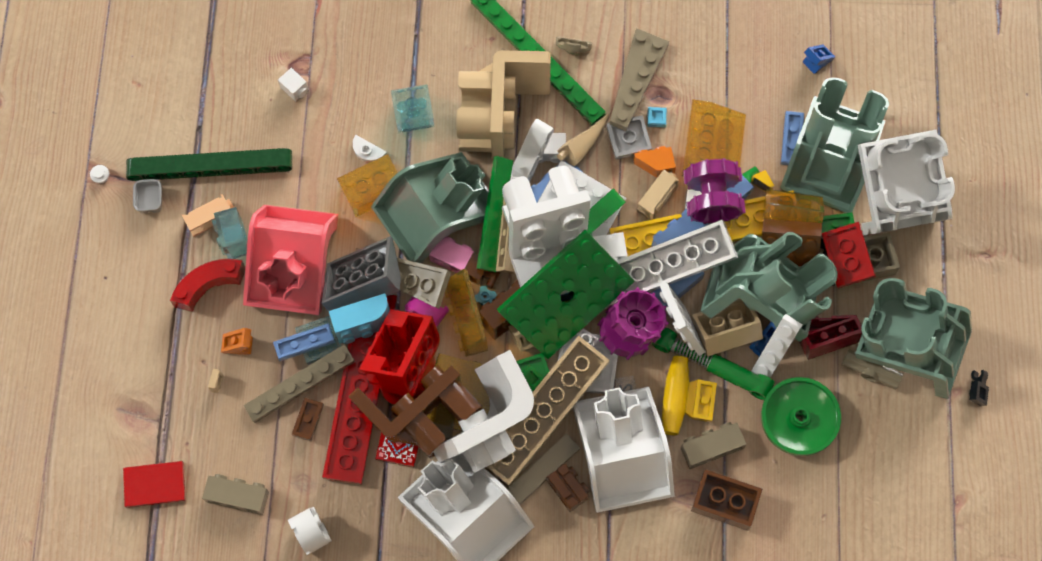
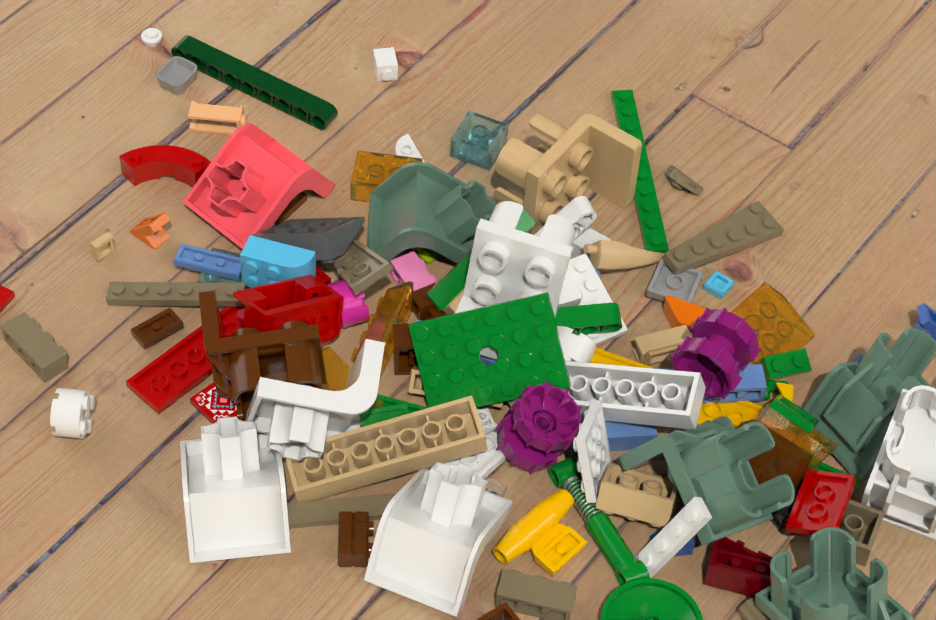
camera: 30 degrees right, 20 degrees down
(231, 233) = (220, 128): clear light blue brick -> none
(747, 152) = (786, 364): none -> green plate
(785, 196) = (794, 413): none -> green tile

